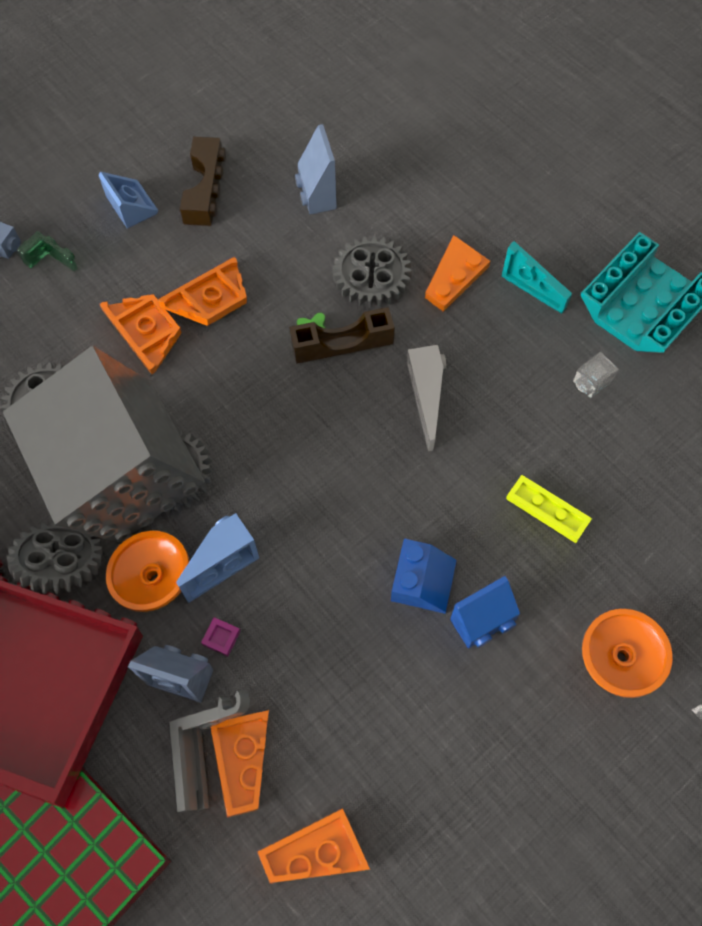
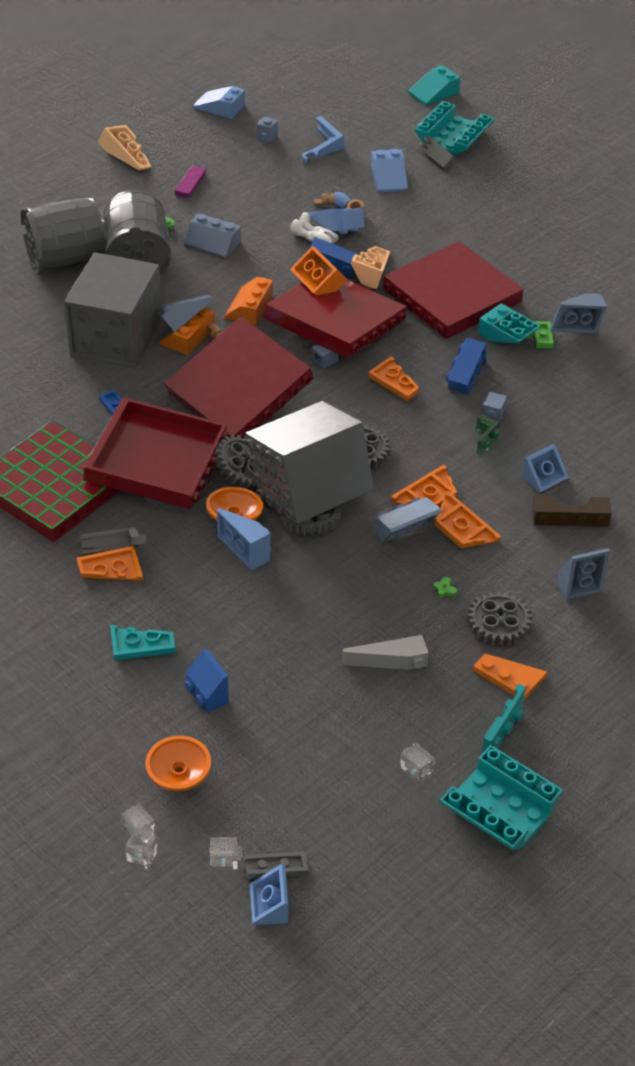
camera: 85 degrees right, 20 degrees down
(173, 672) = (164, 520): sand blue slope -> none
(206, 349) = (405, 518): none -> sand blue slope
(220, 637) = (192, 550): magenta plate -> none
(315, 851) = (54, 604): orange wing -> none
(370, 331) = (438, 614): dark brown arch -> none
(399, 713) = (134, 644): none -> teal wing
(423, 576) = (237, 651): blue slope -> none
(548, 508) = (294, 729): neon yellow plate -> none

